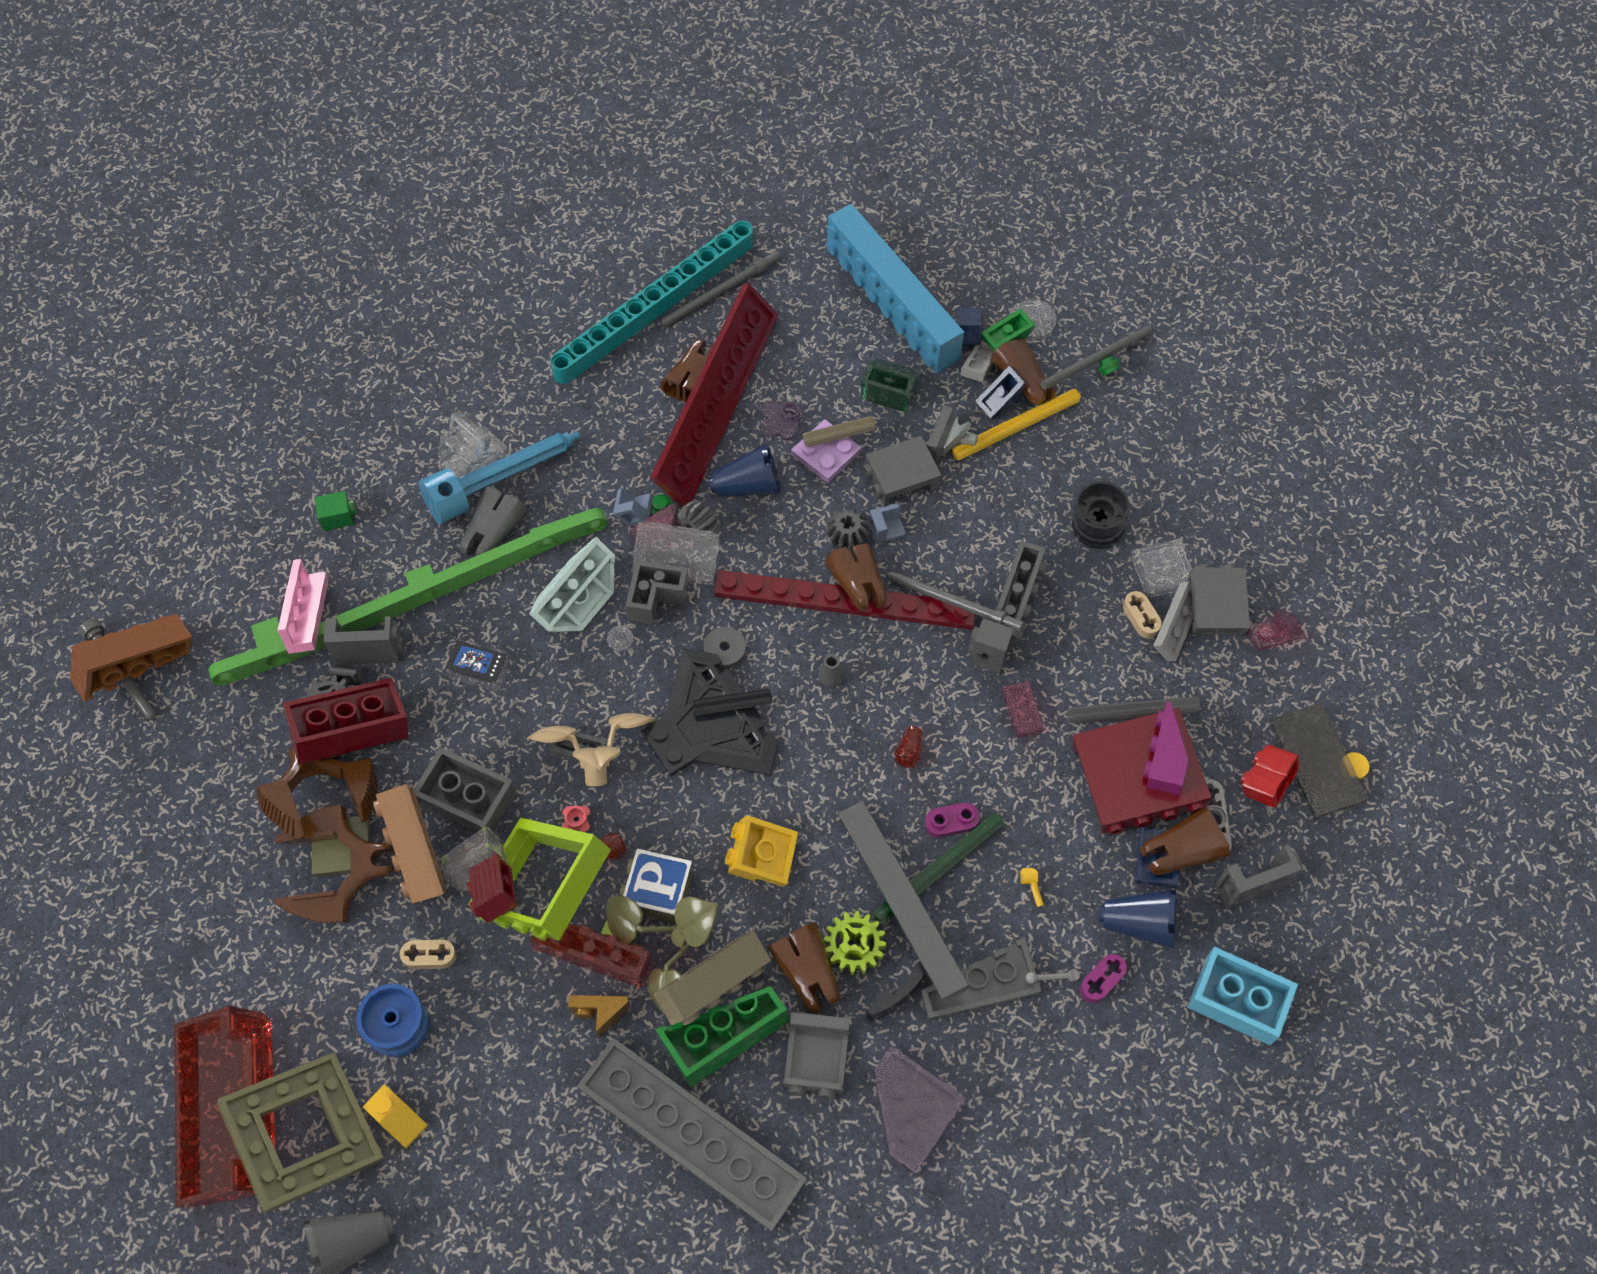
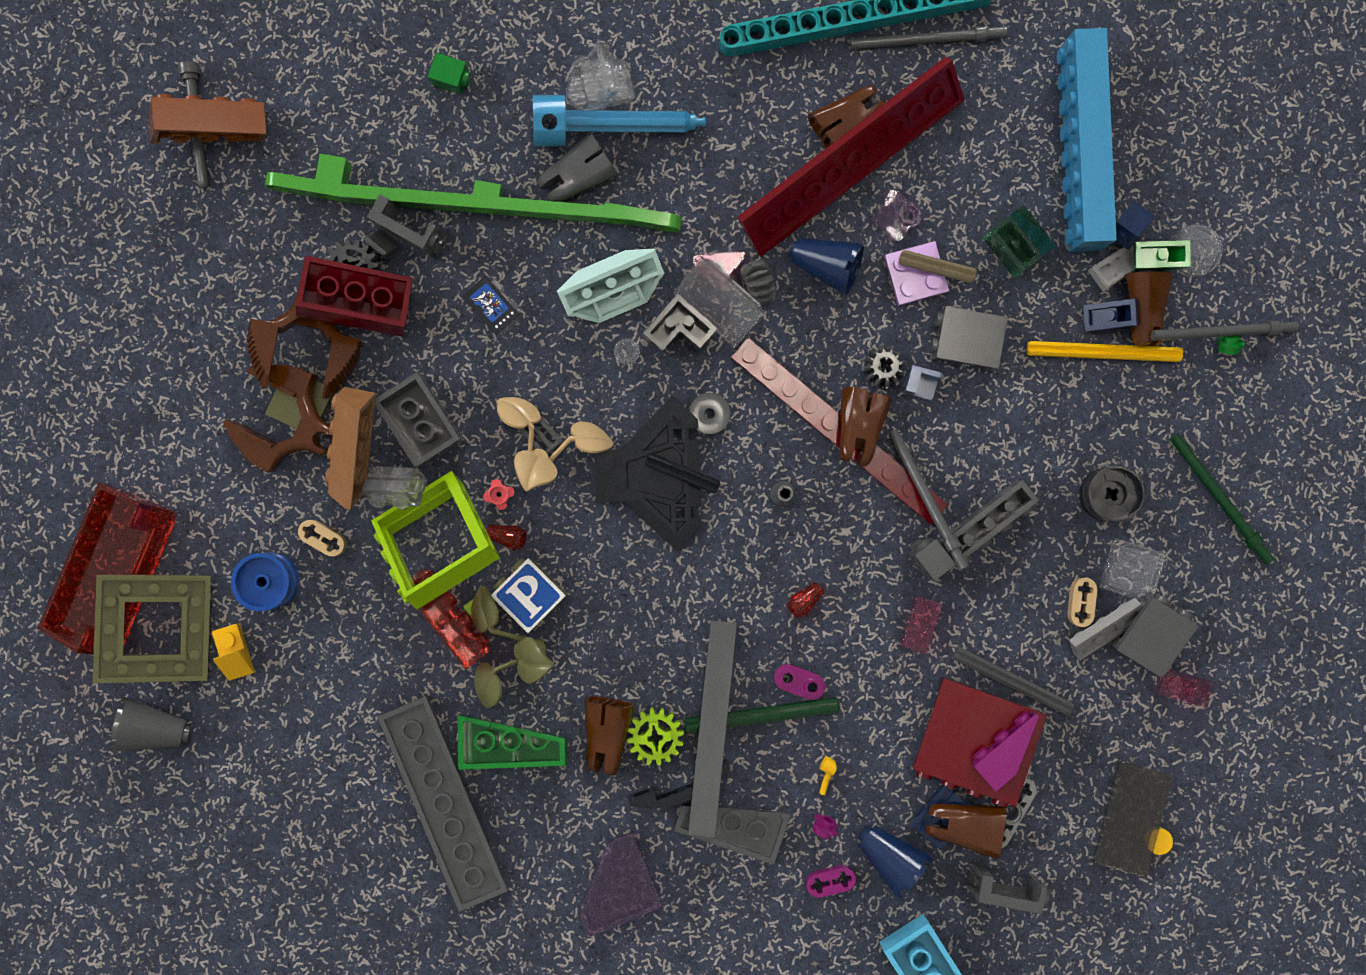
camera: 25 degrees right, 25 degrees up
(302, 608) = (370, 164): bright pink fence -> none
(491, 888) = (390, 529): dark red brick -> none
(608, 1009) = (433, 668): pearl gold slope -> none
(631, 508) = (710, 229): sand blue panel -> none
(659, 503) = (735, 240): green plate -> none
(712, 978) = (524, 704): dark tan brick -> none
(761, 851) = (628, 616): yellow plate -> none
(816, 1055) = (571, 804): dark grey panel -> none
(948, 434) = (1035, 328): piece -> none
(1063, 929) = (825, 826): none -> magenta plate
(1072, 975) = (808, 862): light grey hinge -> none
(1237, 491) = (1252, 539): none -> dark green bar
(1270, 775) = (1082, 809): red brick -> none

